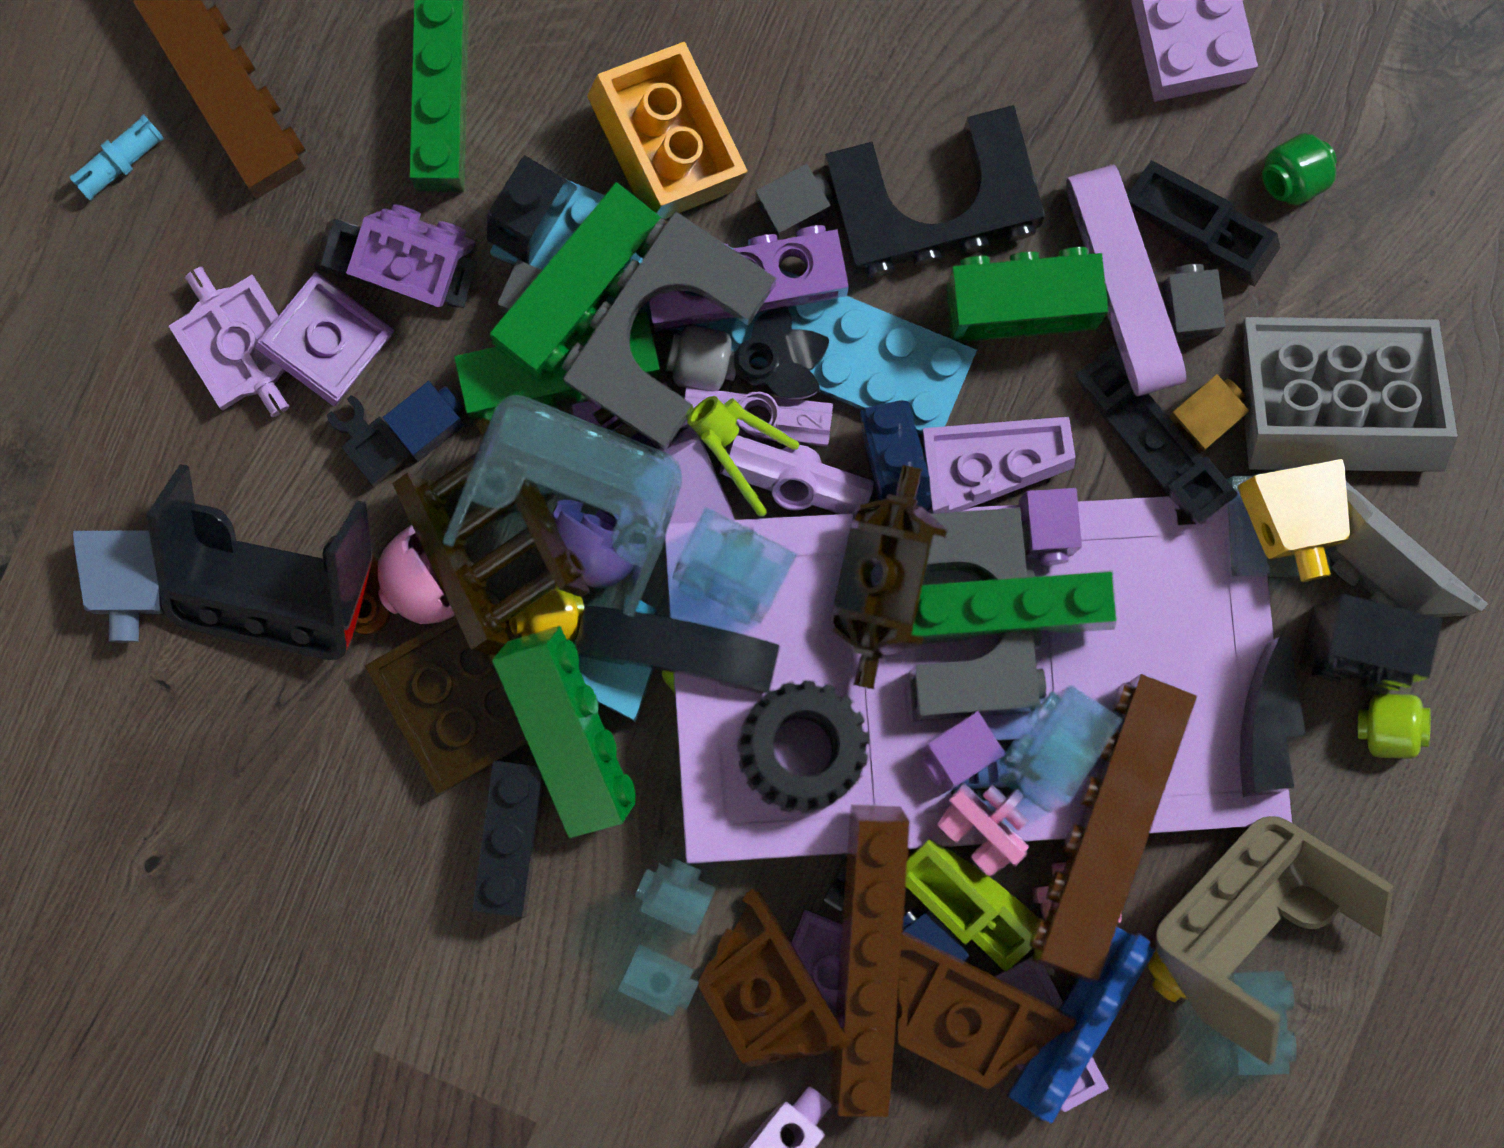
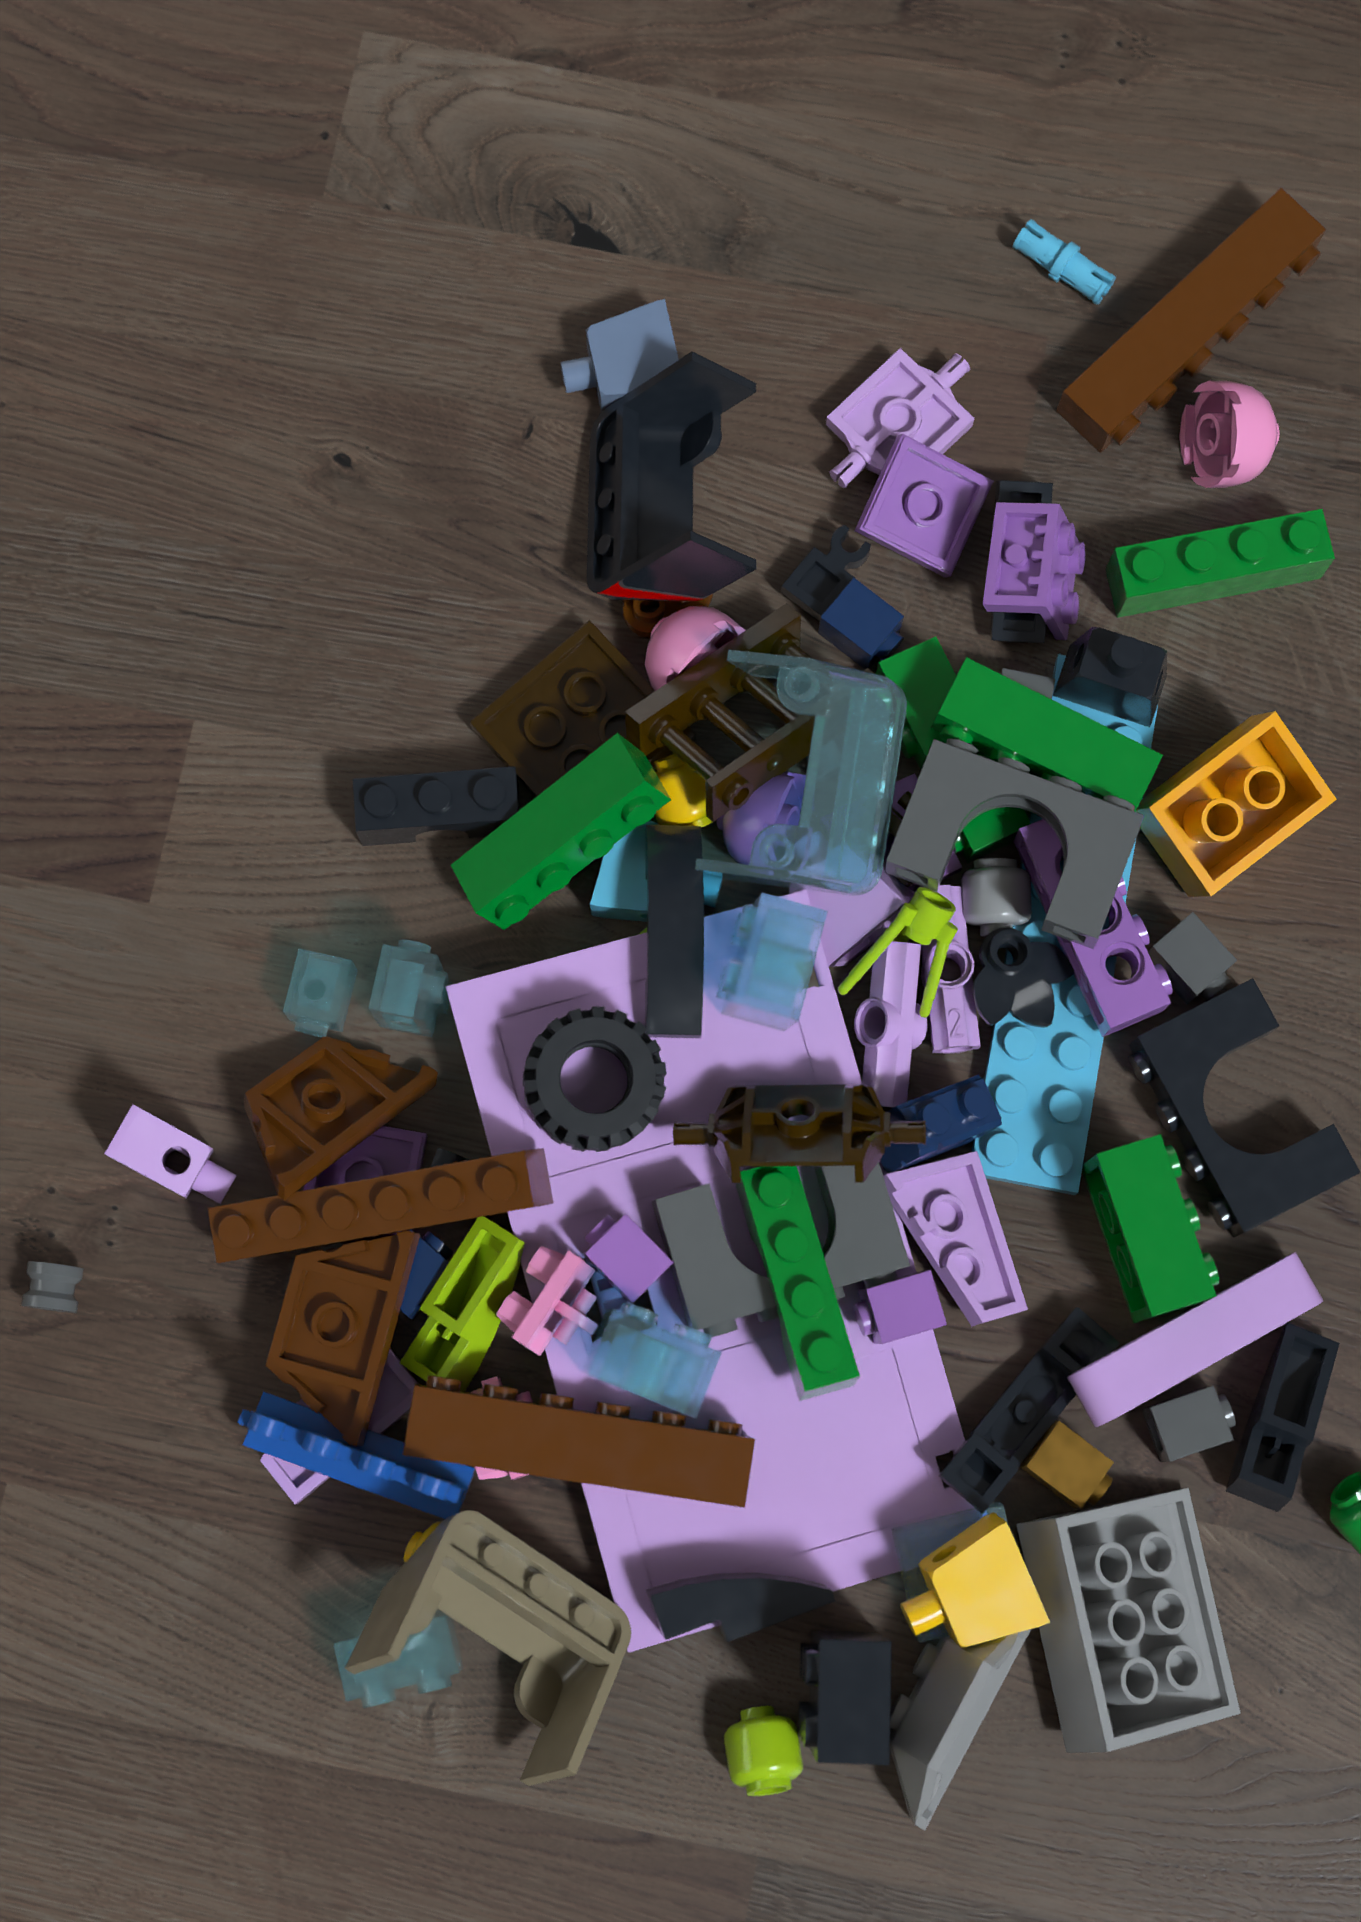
camera: 80 degrees right, 5 degrees down
(321, 51) = (1228, 434): none -> bright pink cylinder

